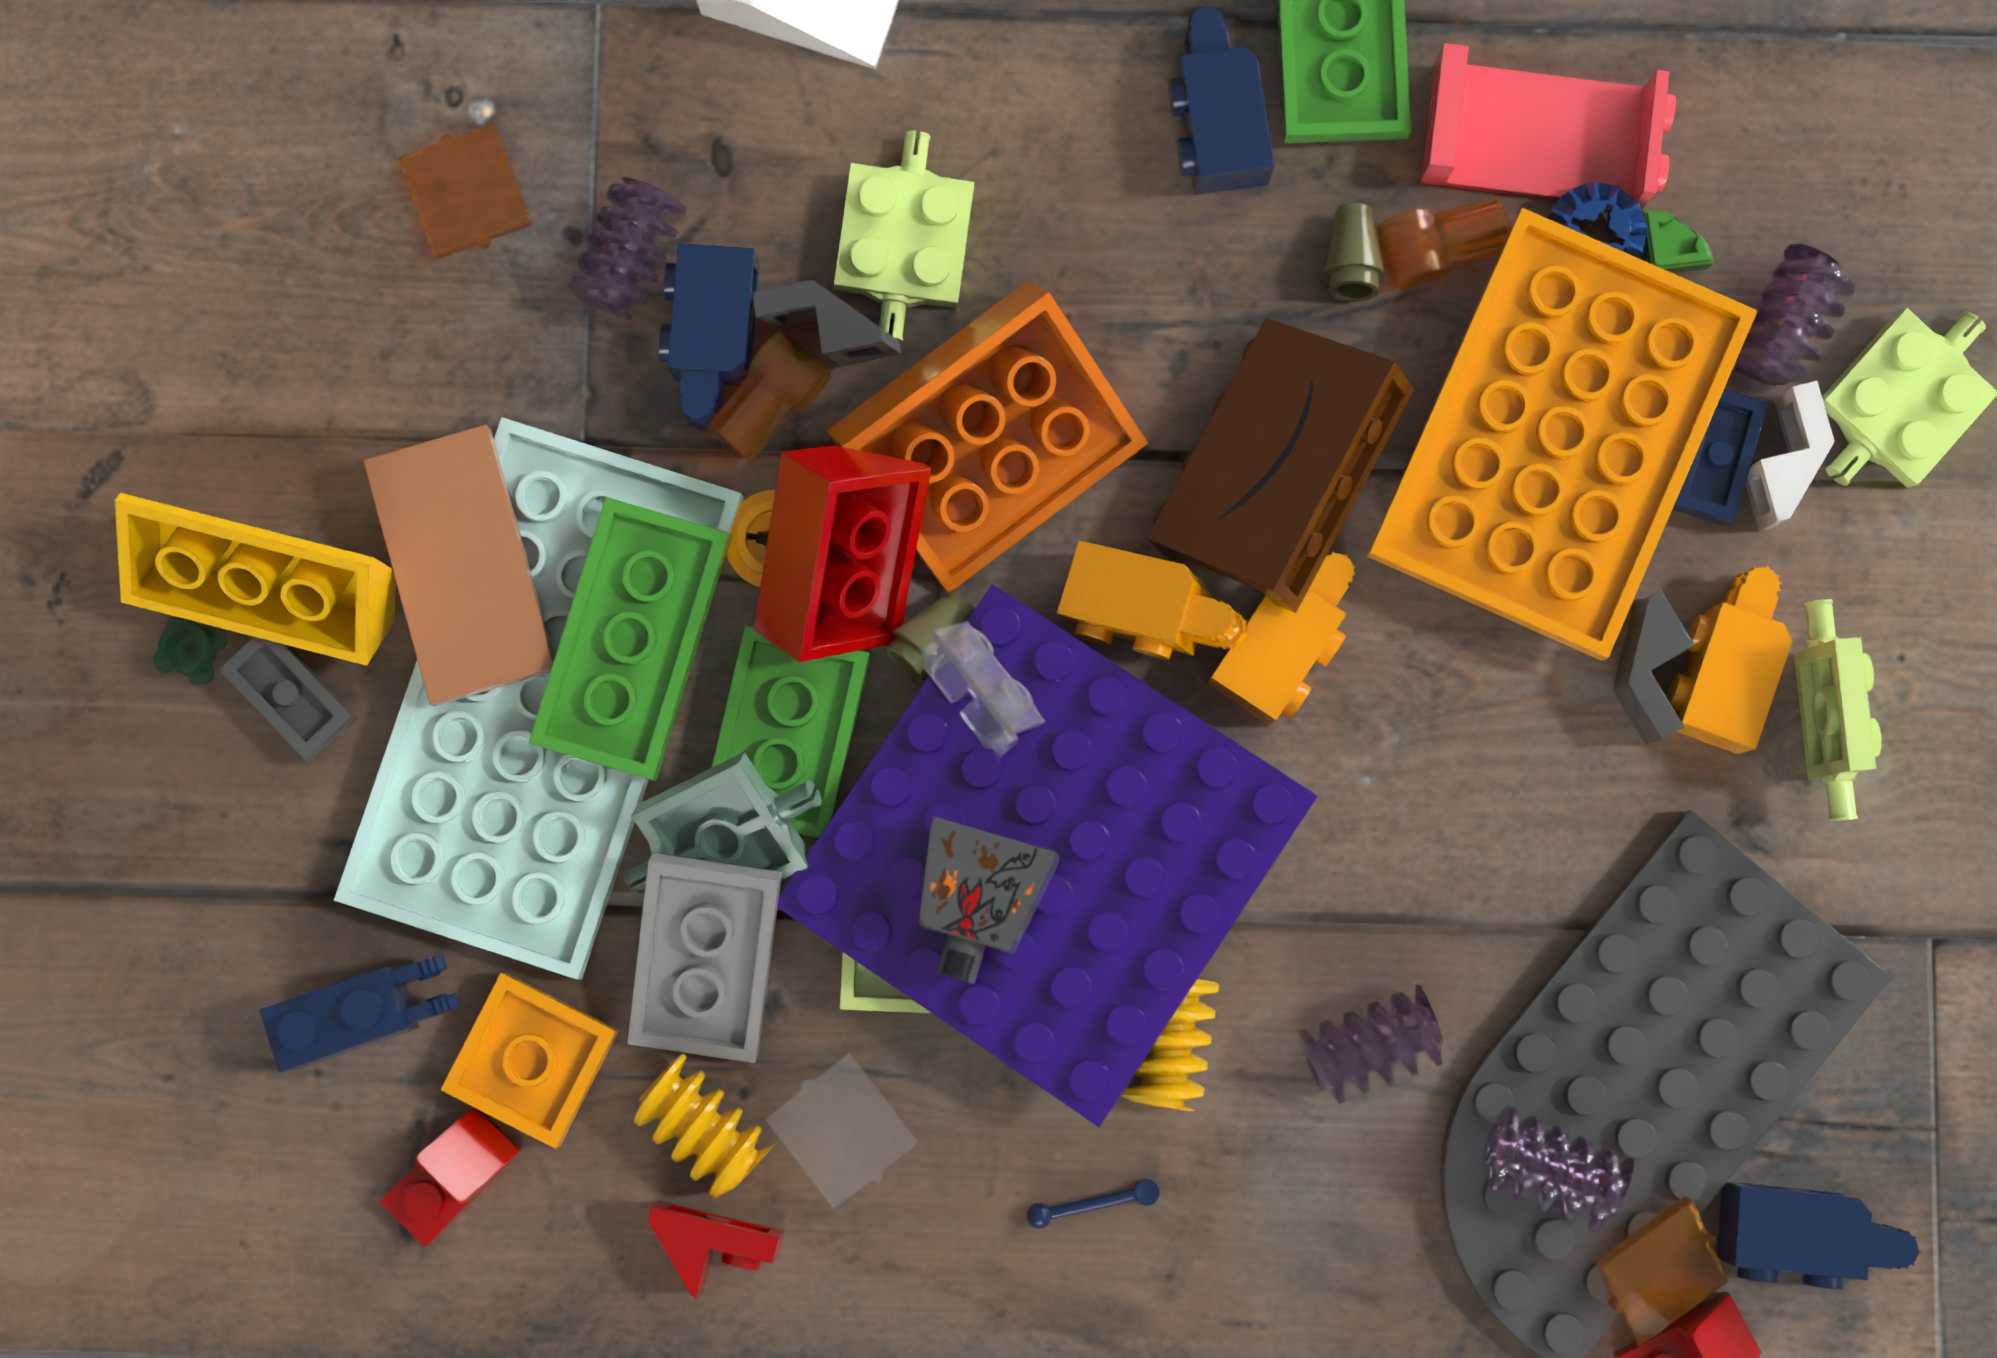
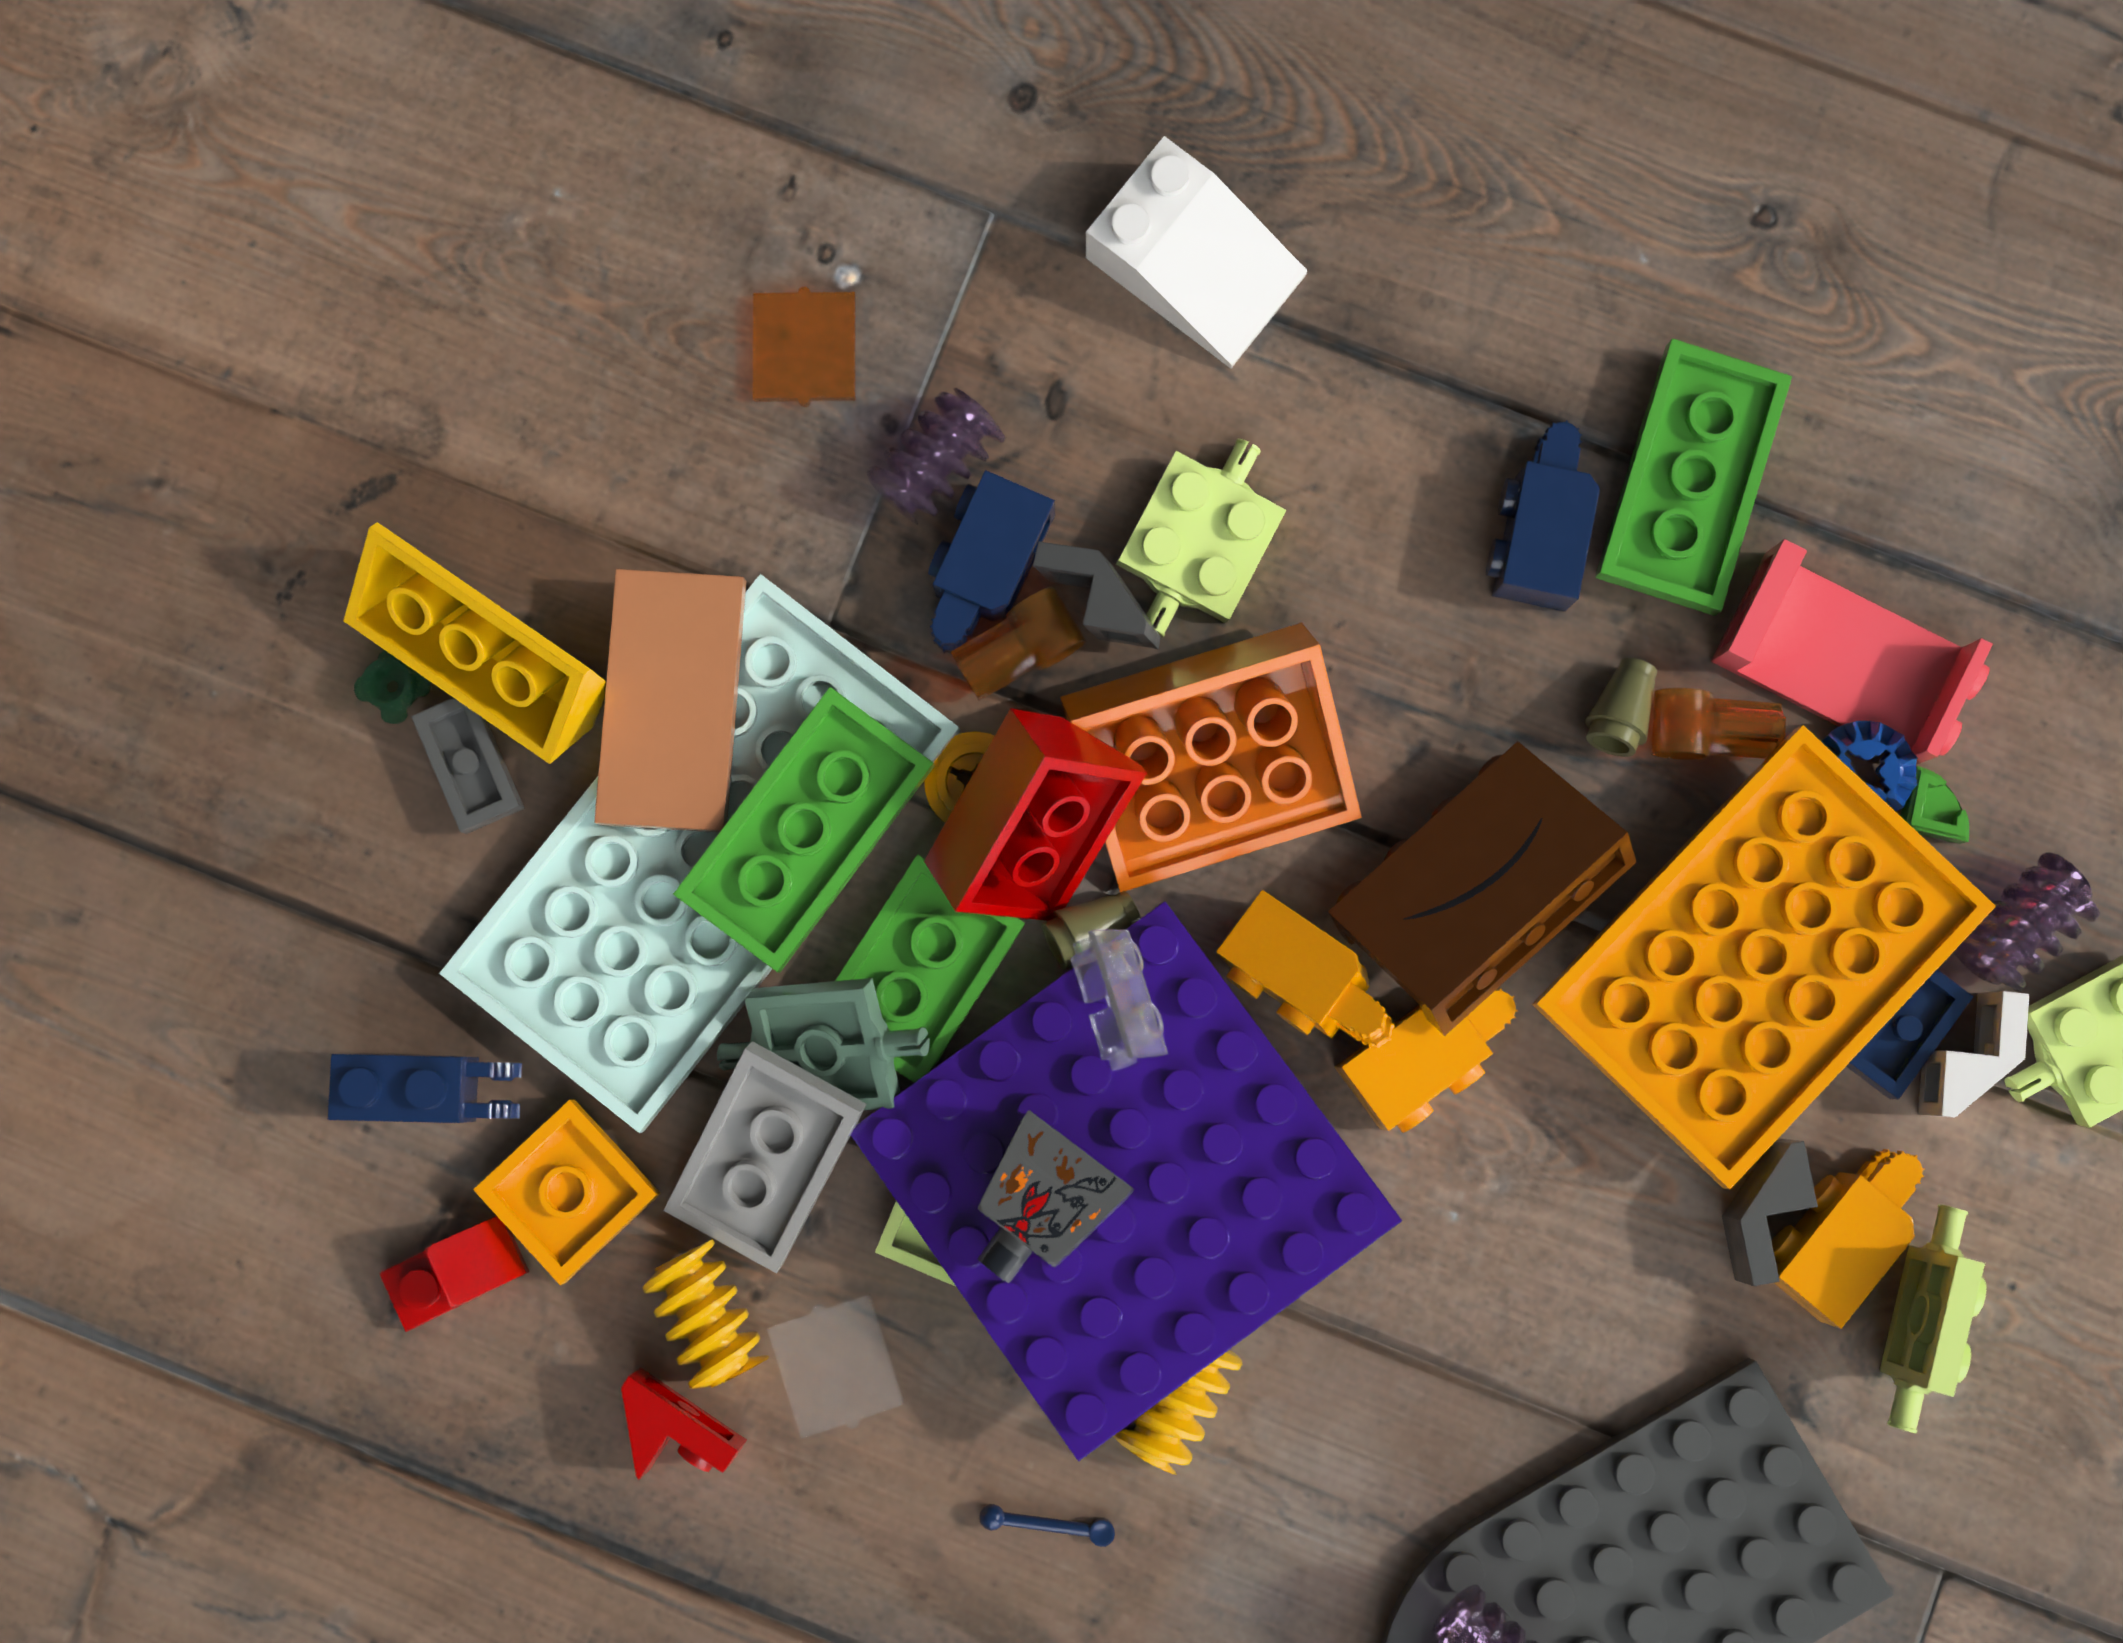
camera: 20 degrees right, 0 degrees up
(1373, 1045) = (1369, 1475): clear purple piece -> none

